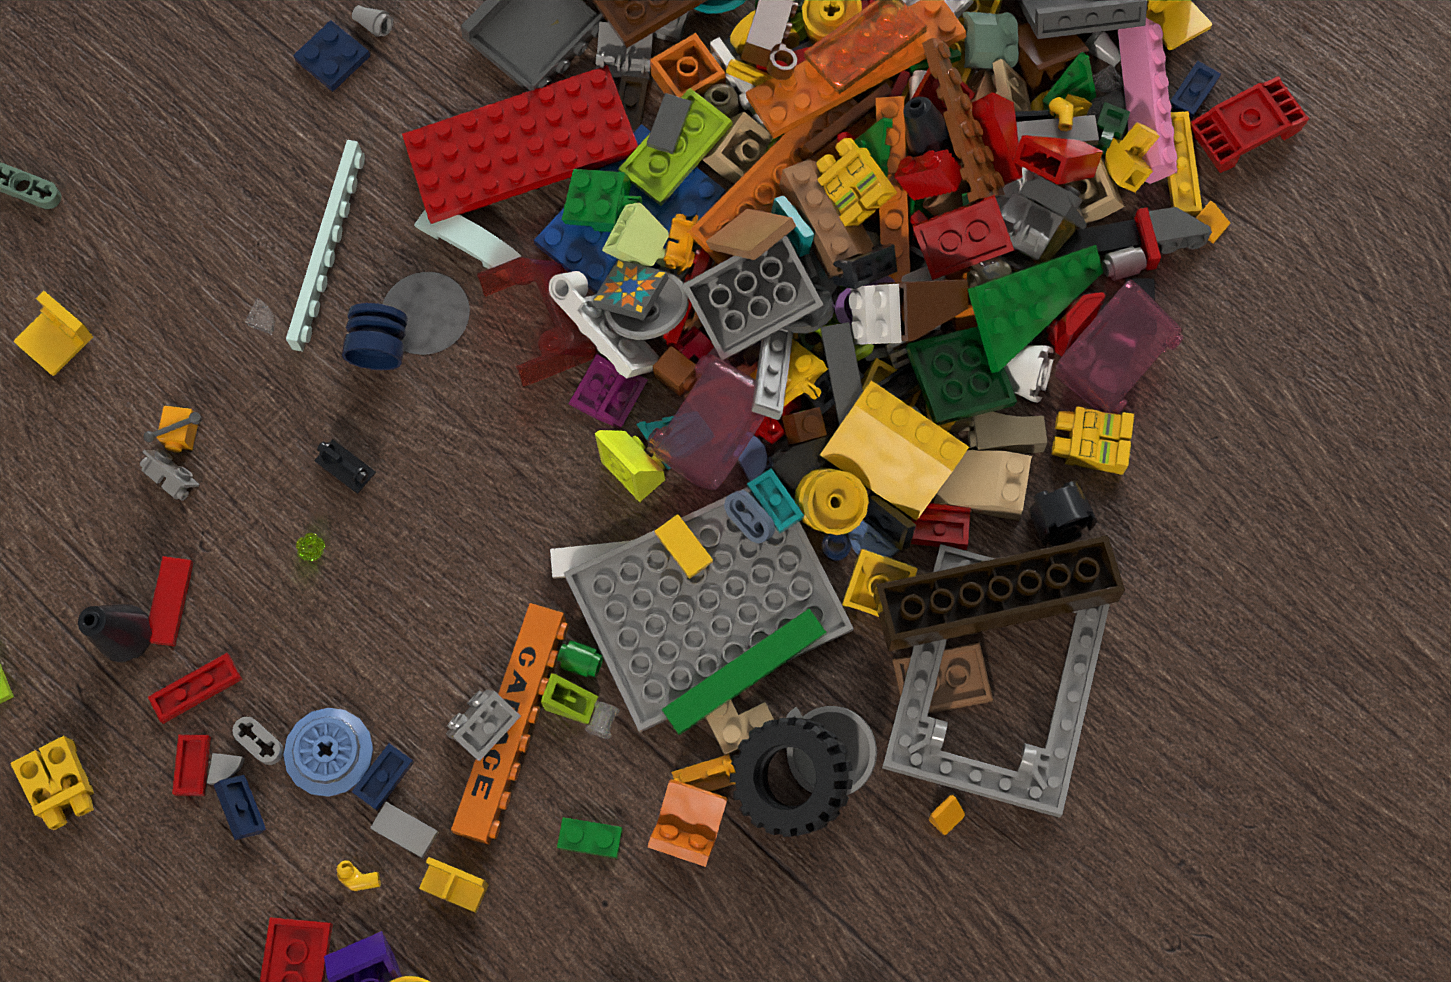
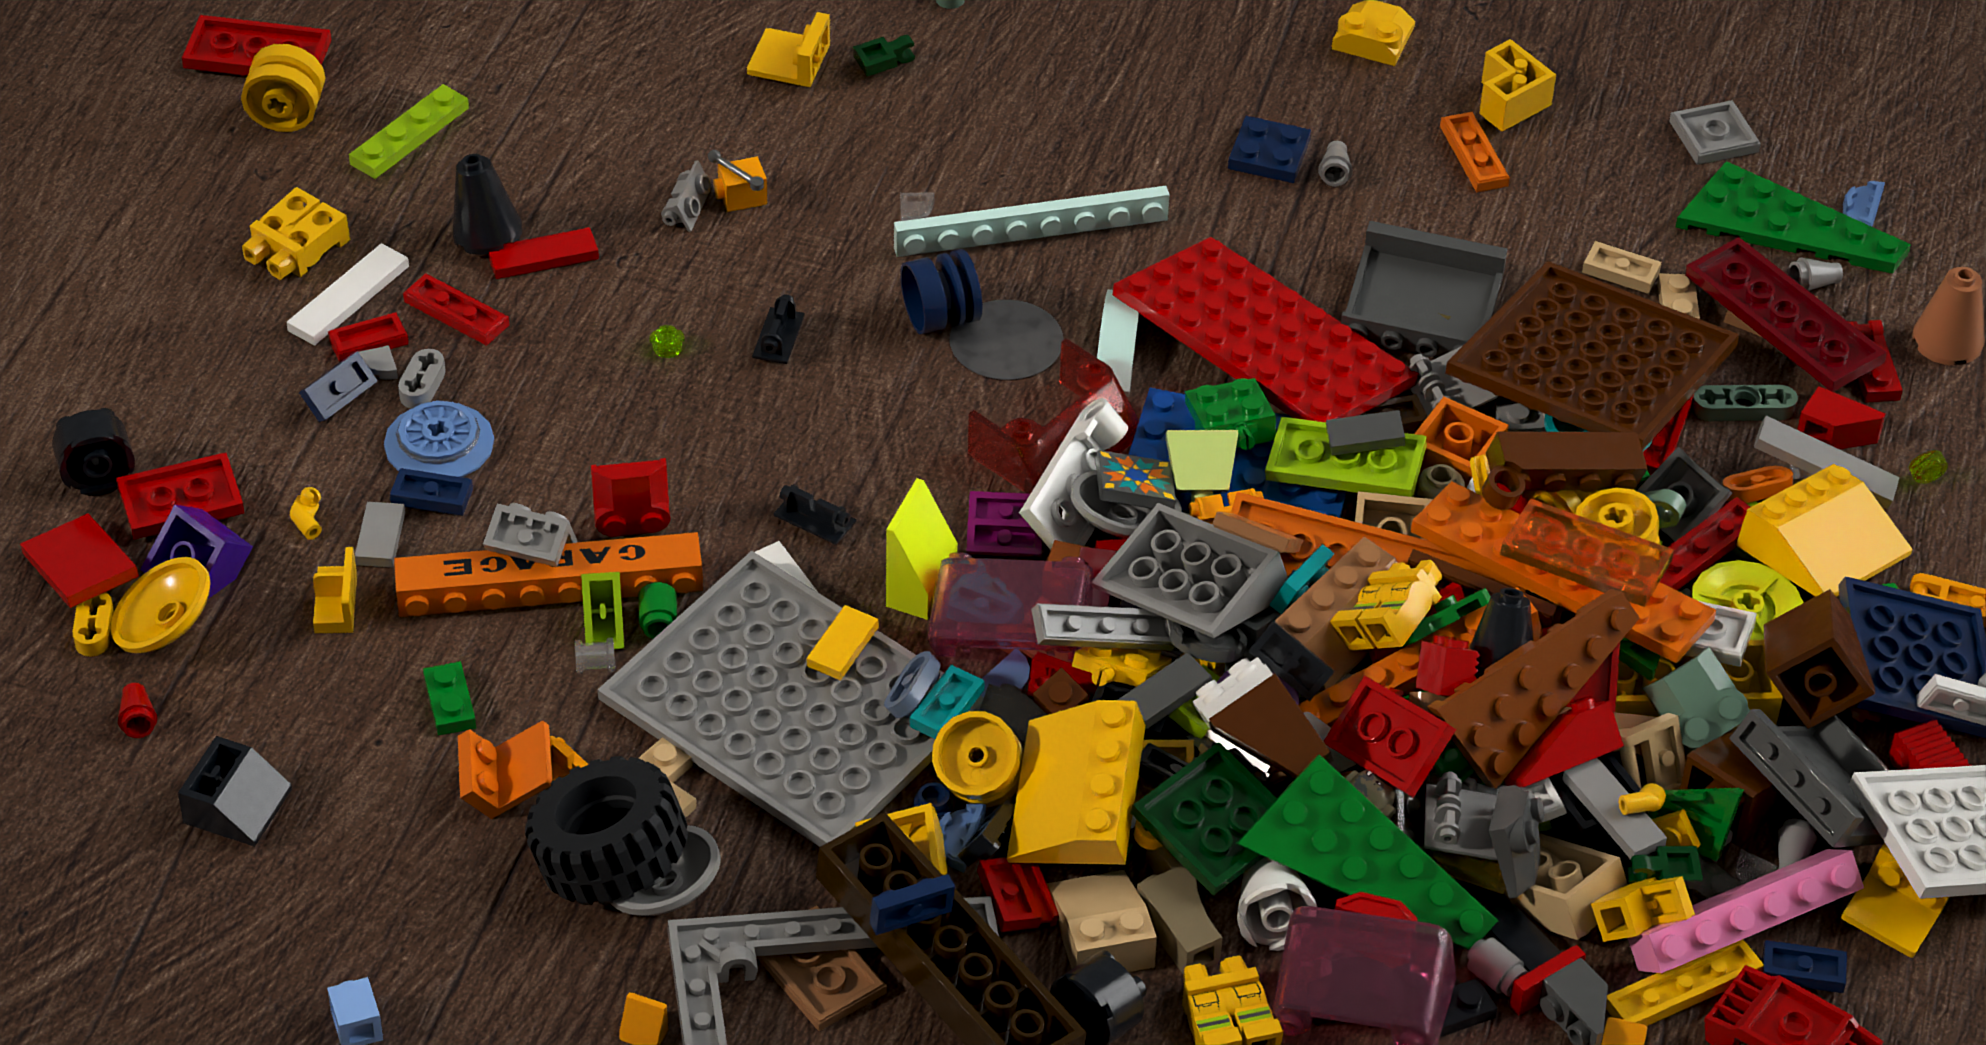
camera: 60 degrees right, 25 degrees down
(91, 273) = (881, 55): none -> dark green plate
(136, 764) = (347, 294): none -> white tile
(473, 637) = (630, 497): none -> red slope
(538, 515) = (814, 516): none -> black hinge
(743, 671) = (720, 756): green tile -> none
(974, 613) = (912, 904): none -> dark blue plate
(1058, 158) = (1570, 809): red slope -> none

